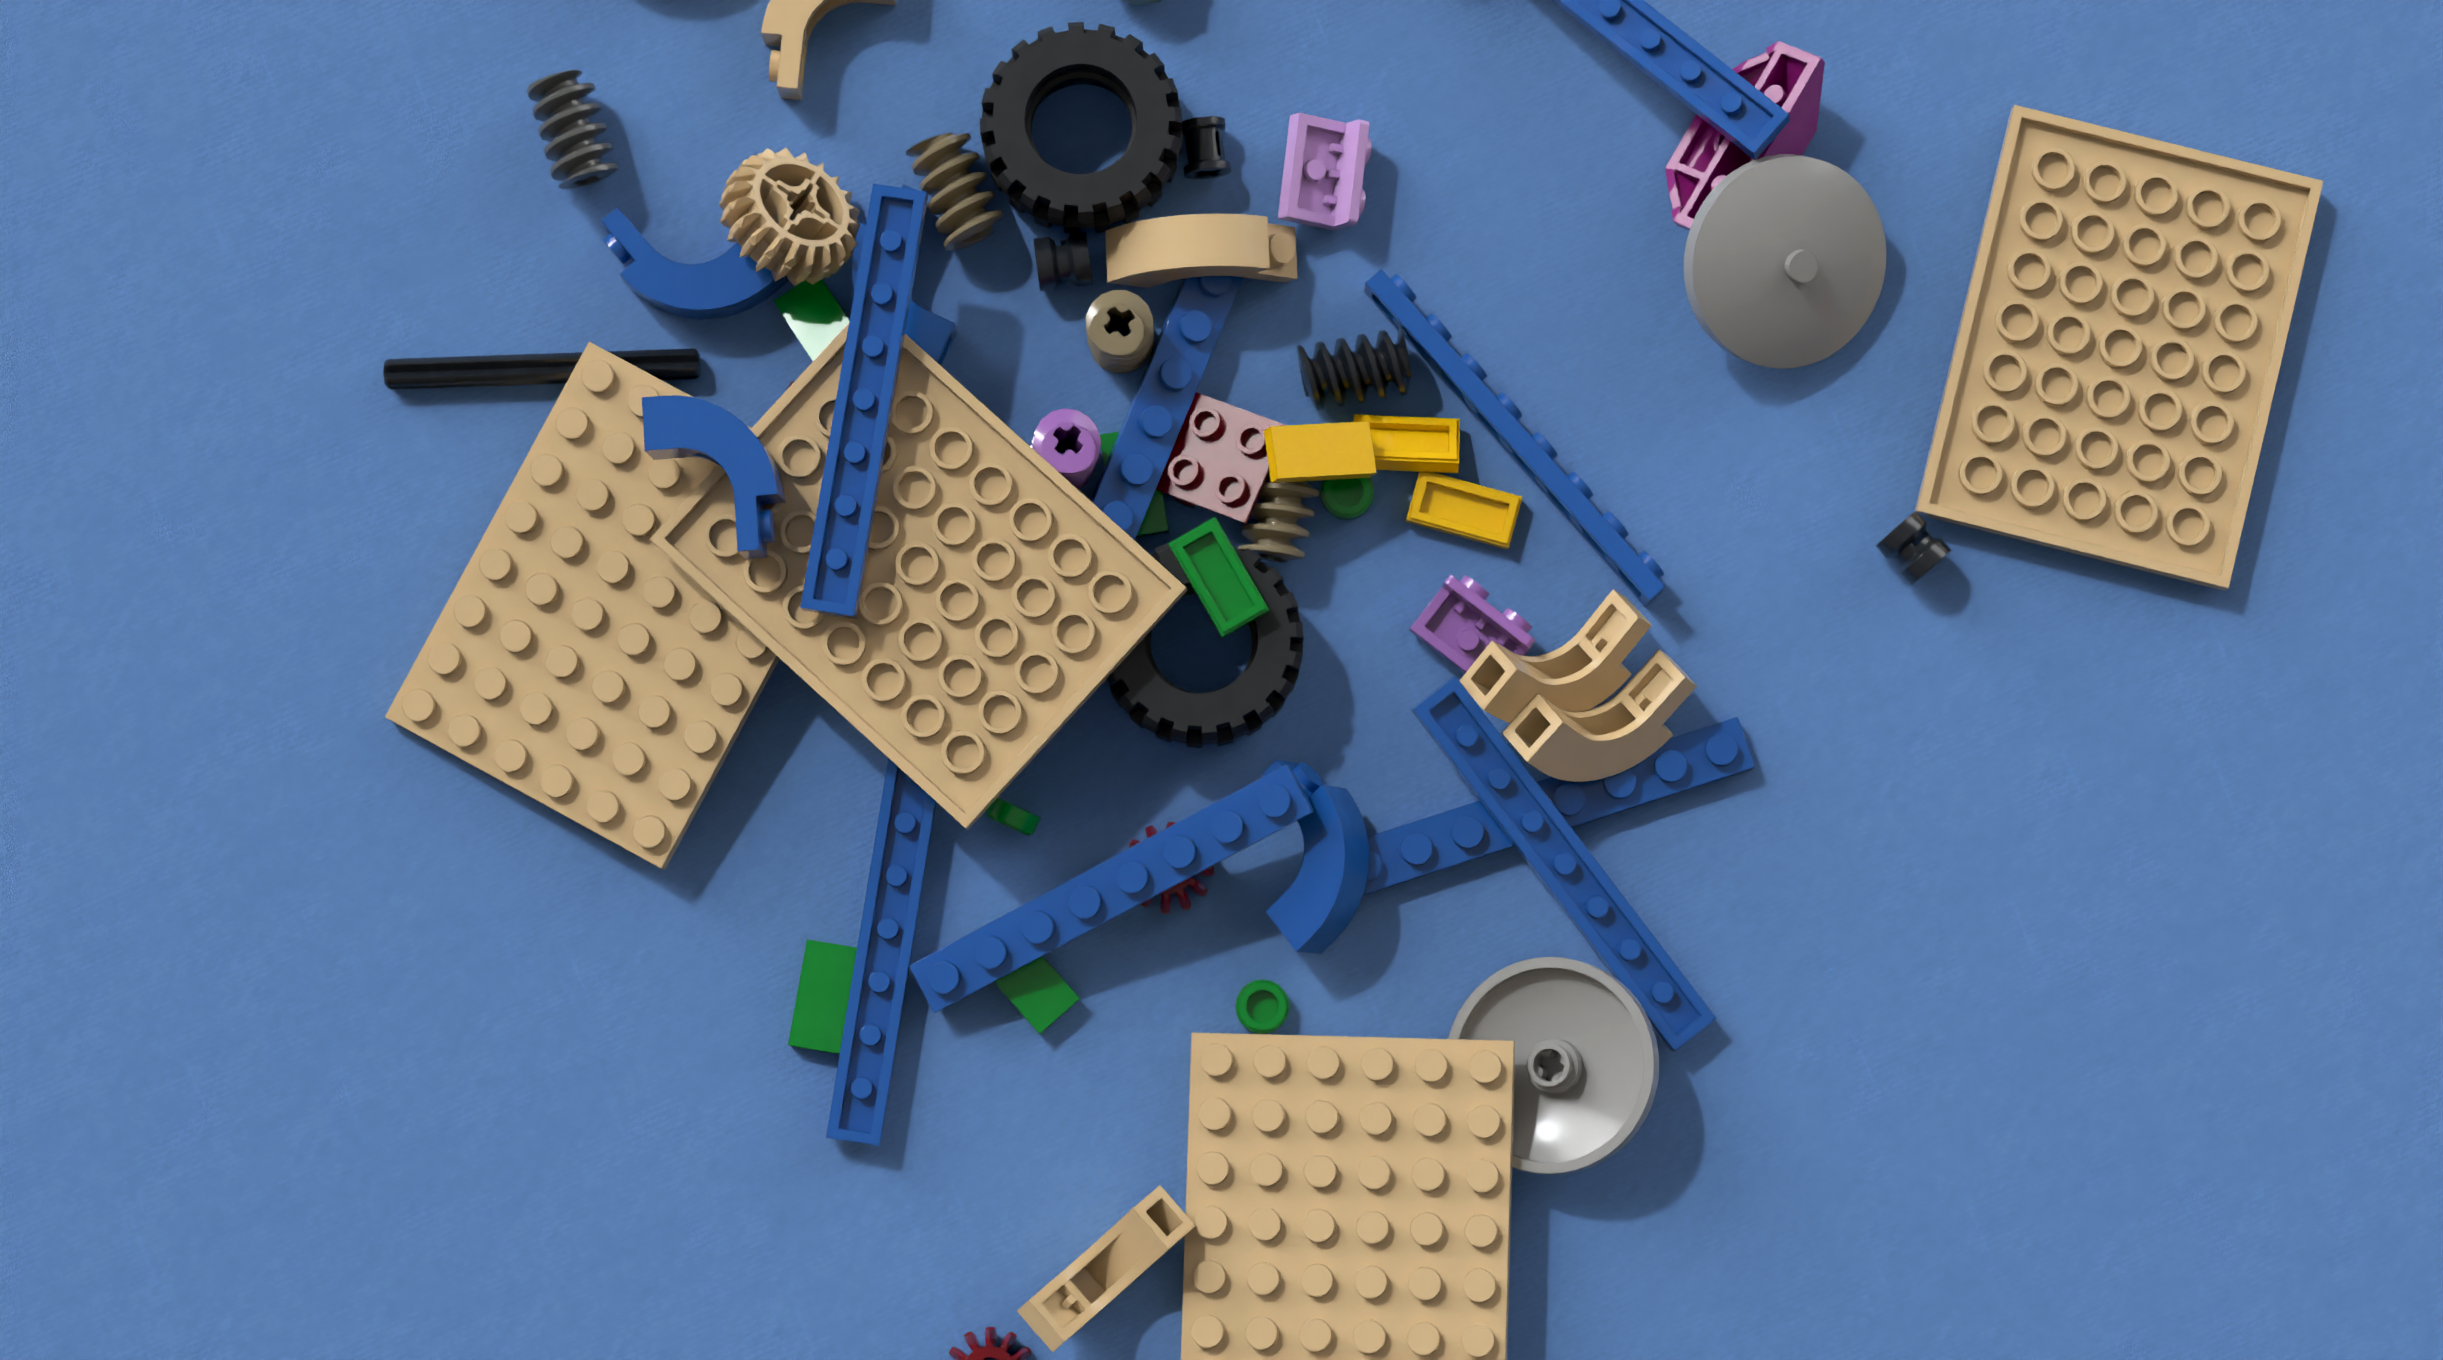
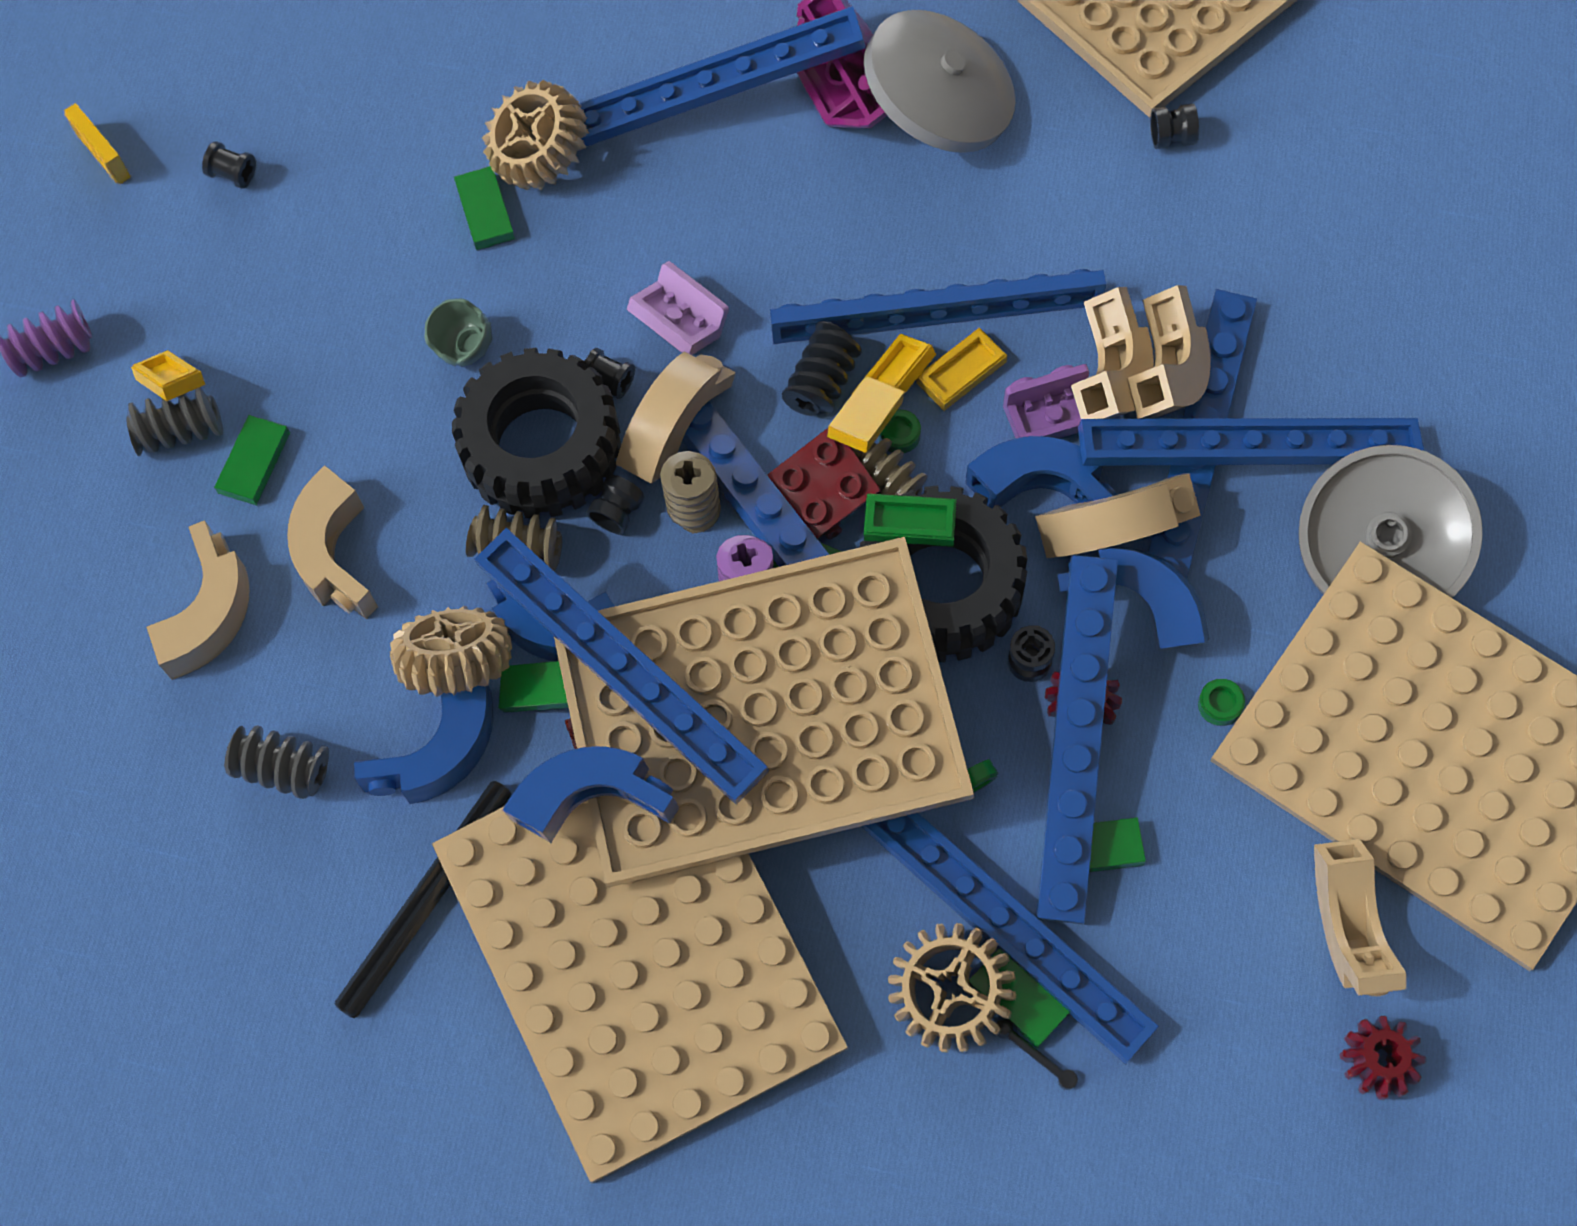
camera: 50 degrees left, 15 degrees down
(778, 1091) = (1066, 1079): none -> black hinge
(780, 906) = (959, 967): none -> tan gear
(1184, 794) = (1030, 663): none -> black wheel
(1362, 778) = (1118, 518): none -> tan arch
(1389, 646) = (1035, 464): none -> blue arch

